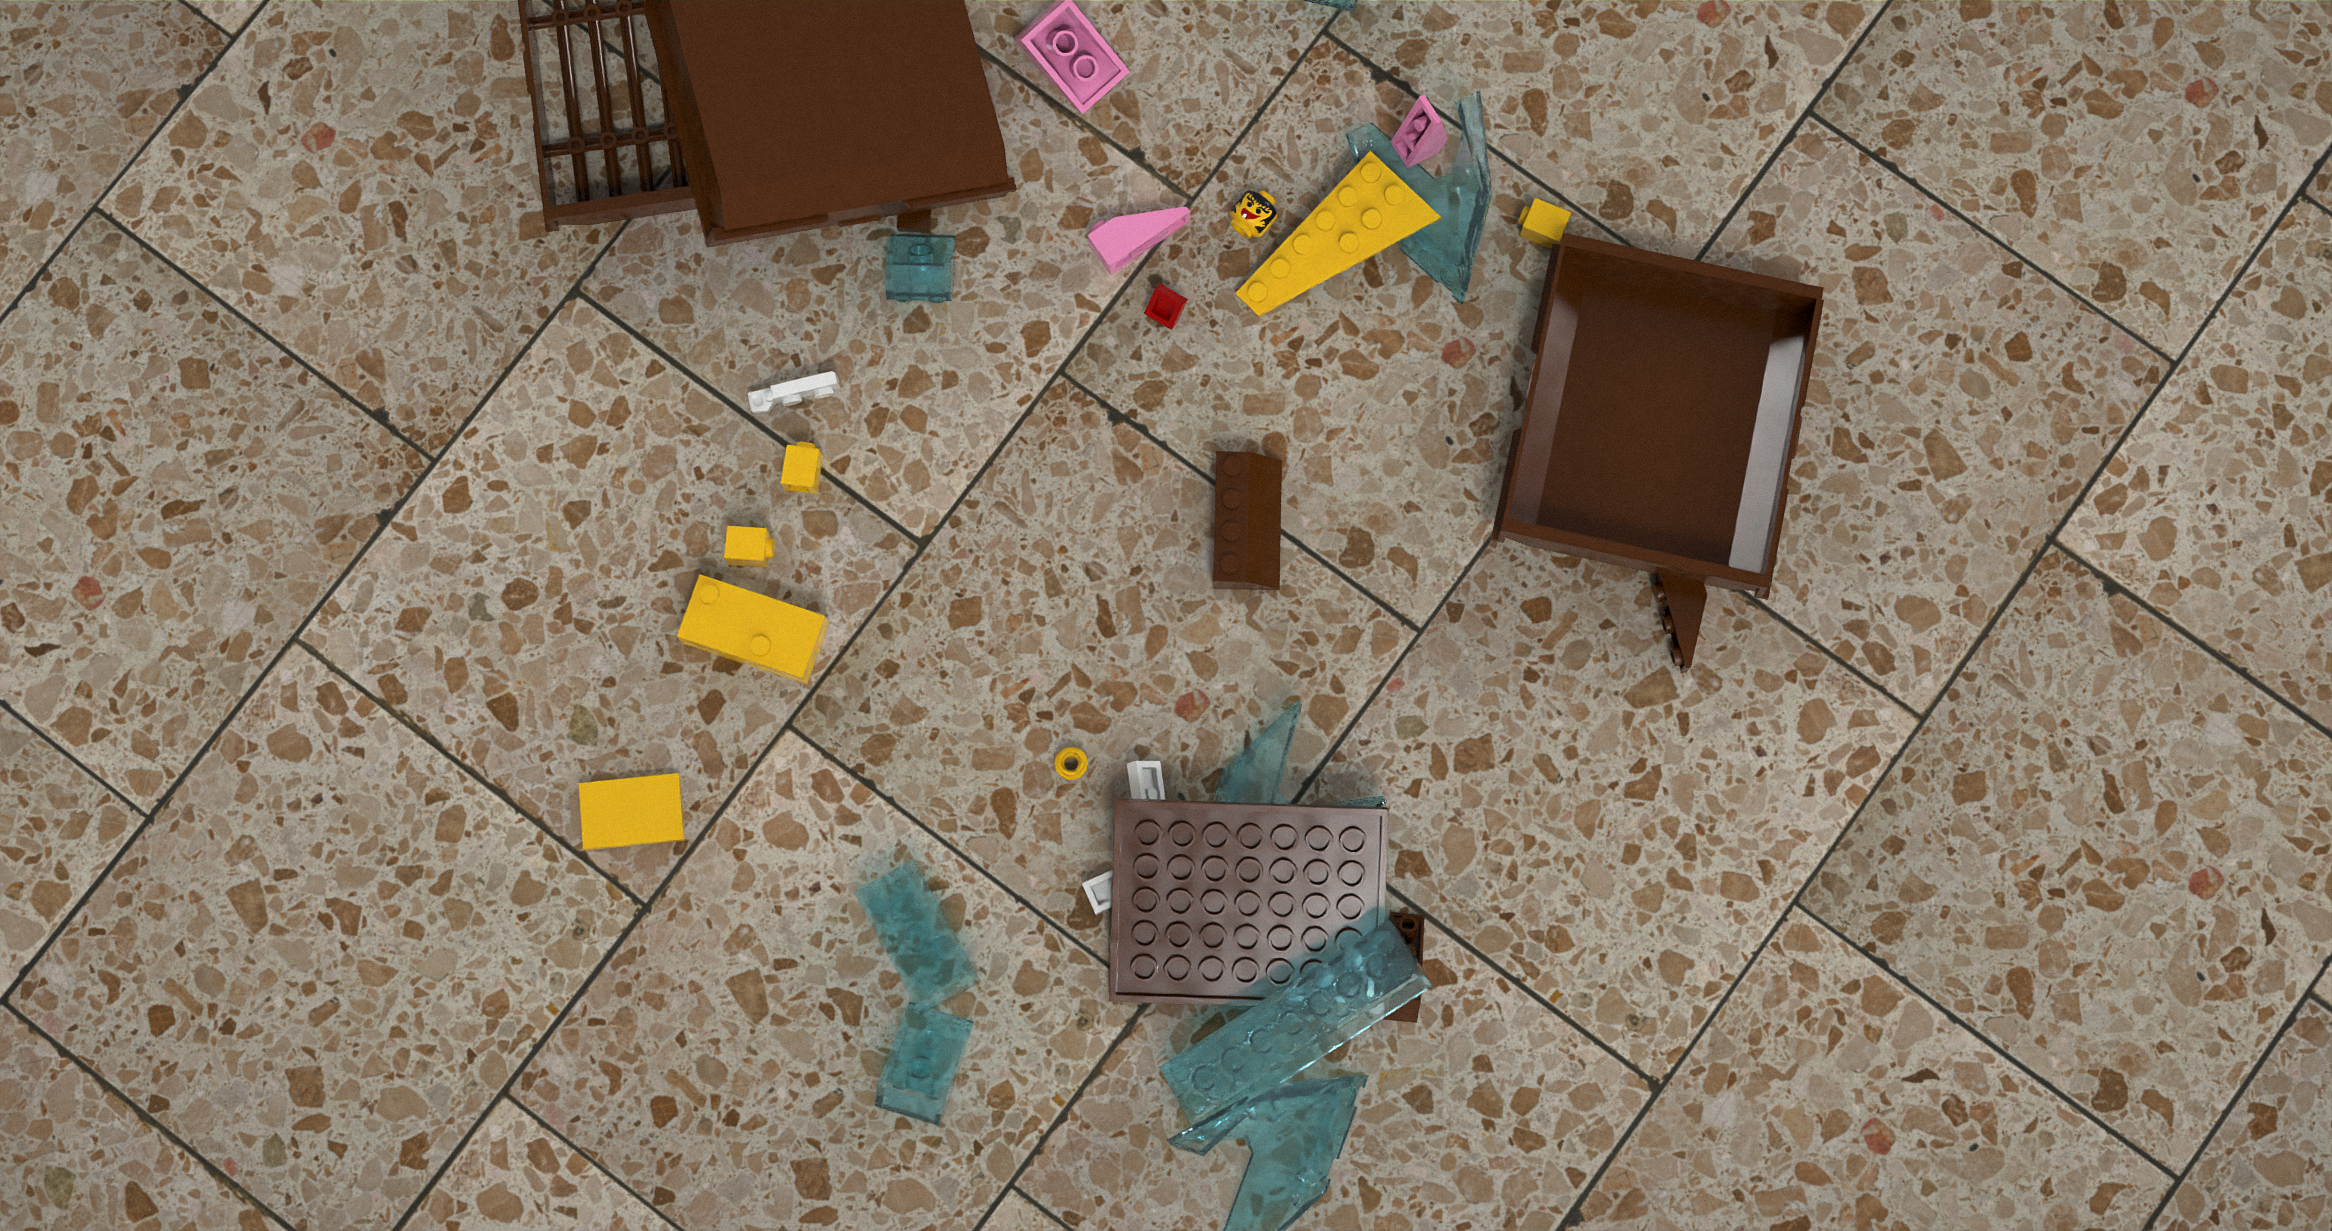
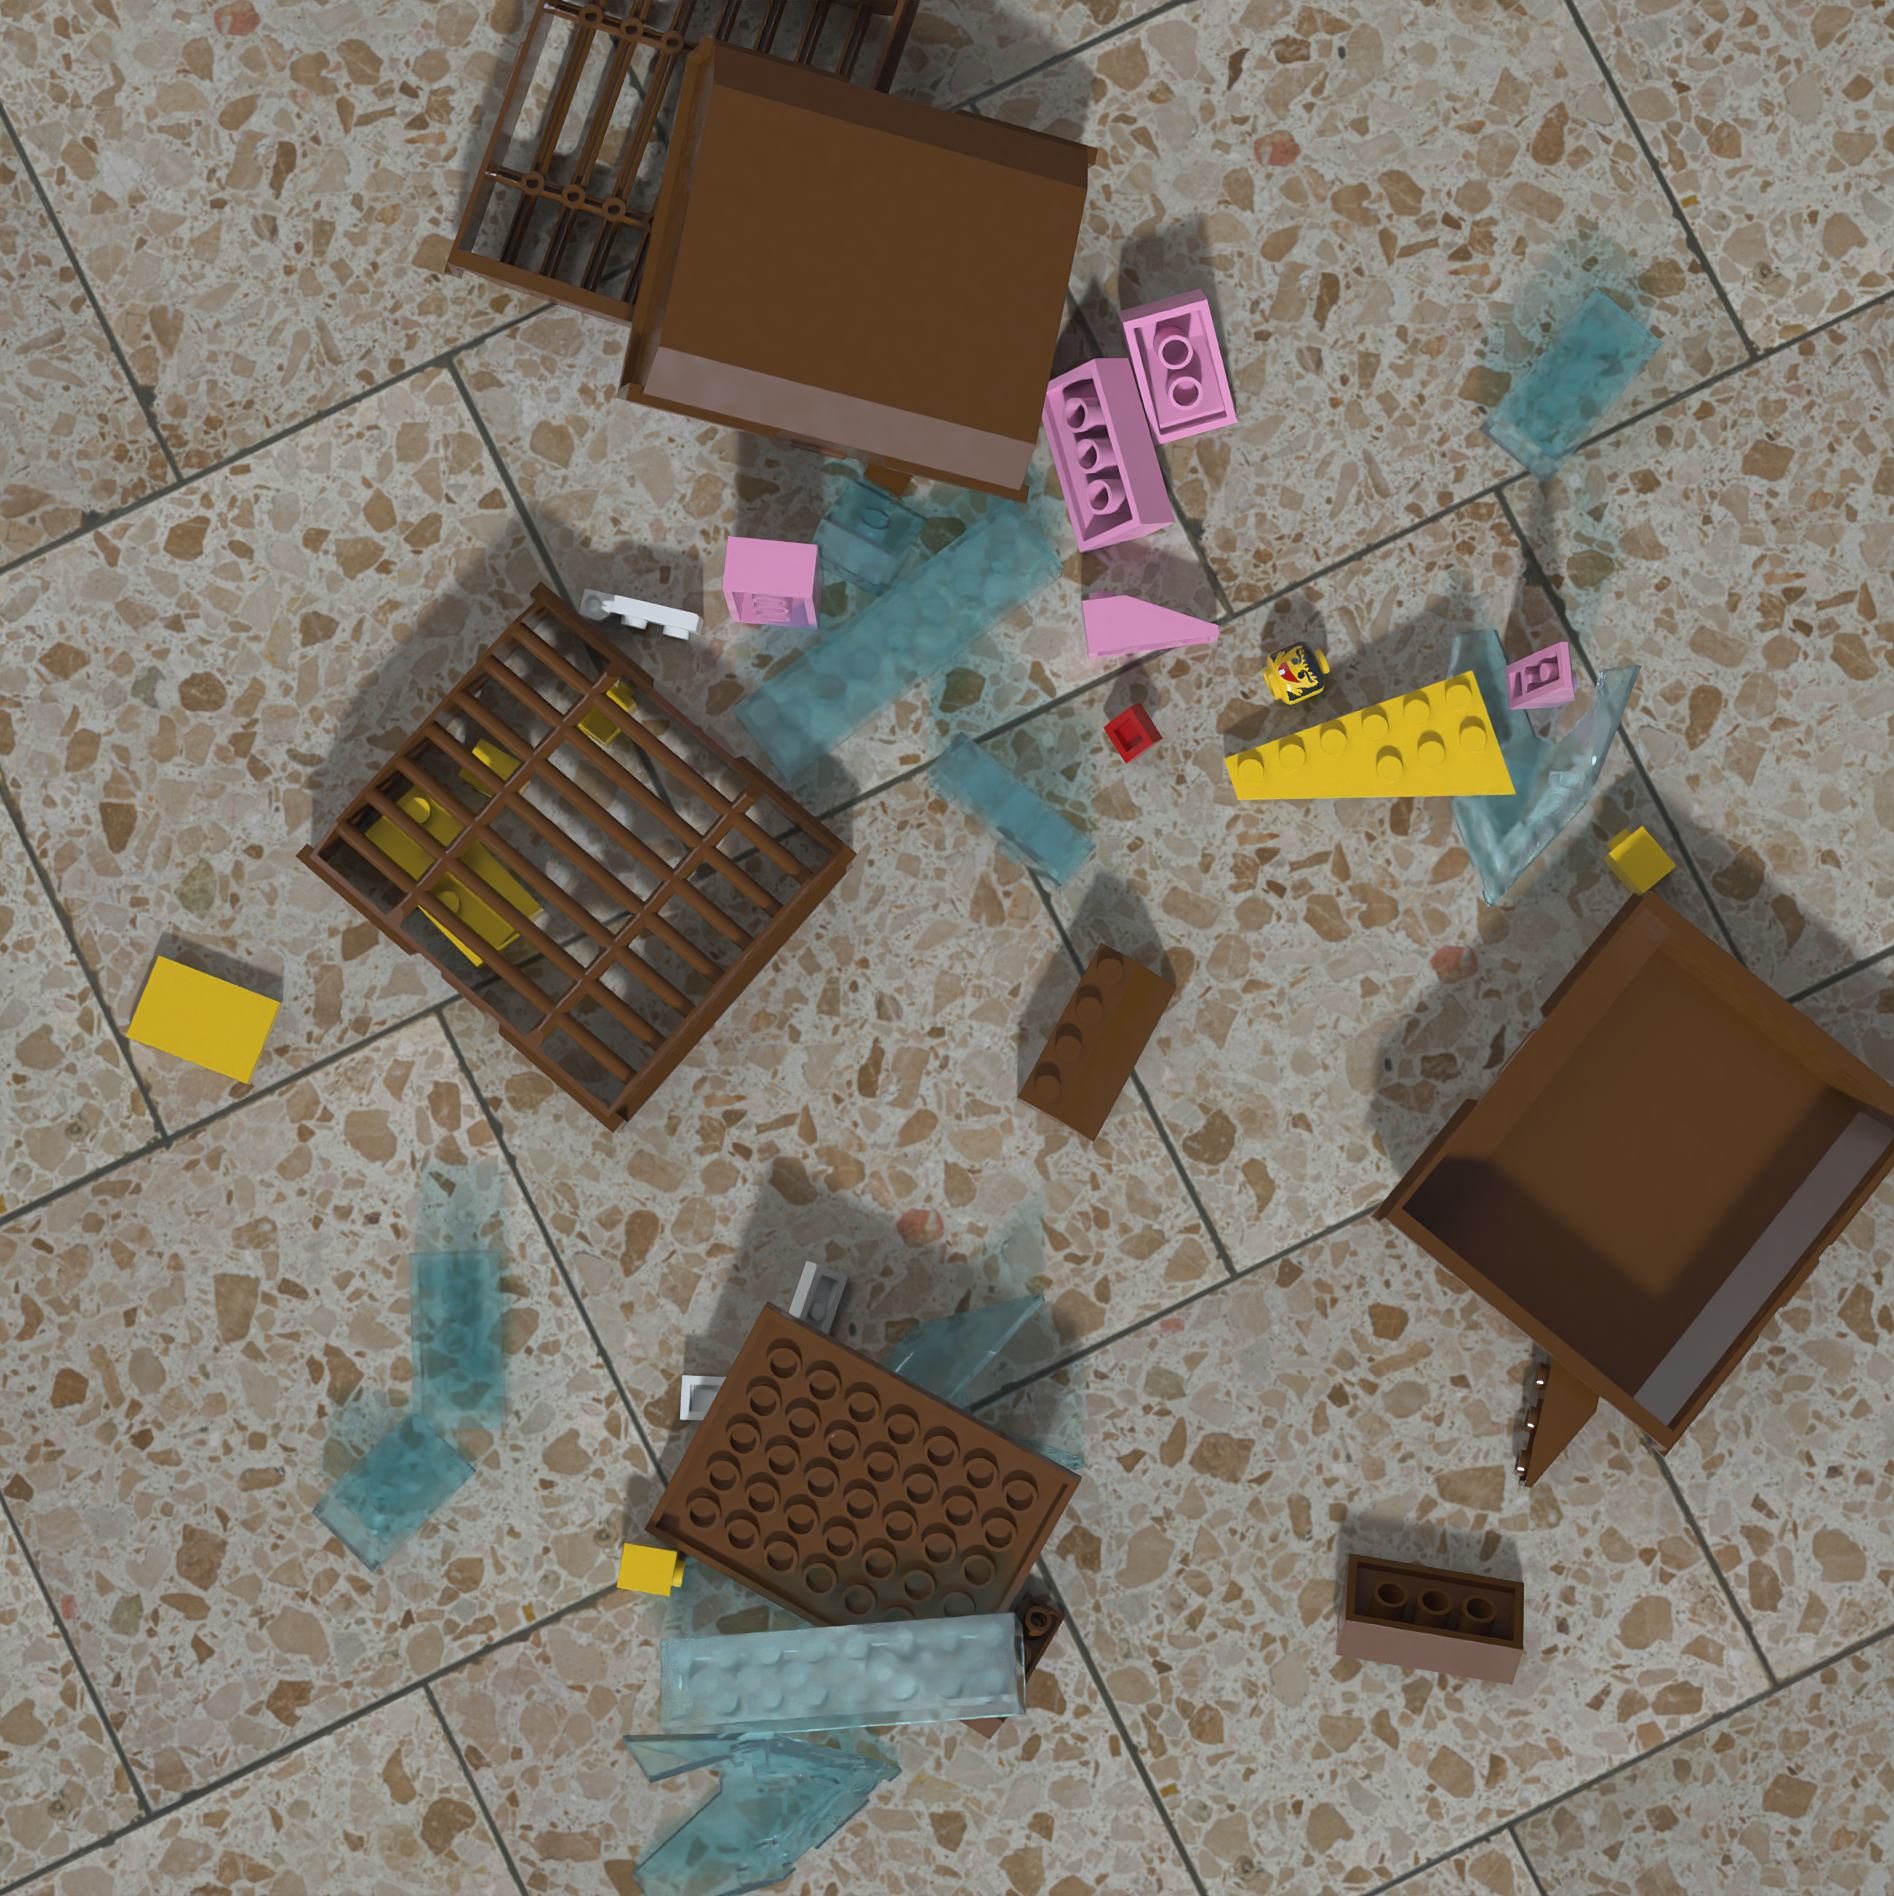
camera: 25 degrees right, 5 degrees up
(875, 320) = (773, 582): none -> bright pink brick
(931, 464) = (727, 985): none -> reddish brown bar
(977, 324) = (898, 641): none -> clear light blue brick
(1053, 135) = (1105, 454): none -> bright pink slope
(1067, 753) = (743, 1210): yellow plate -> none
(1111, 397) = (1010, 813): none -> clear light blue brick
(1127, 1025) = (650, 1569): none -> yellow brick
(1670, 790) = (1431, 1619): none -> reddish brown slope

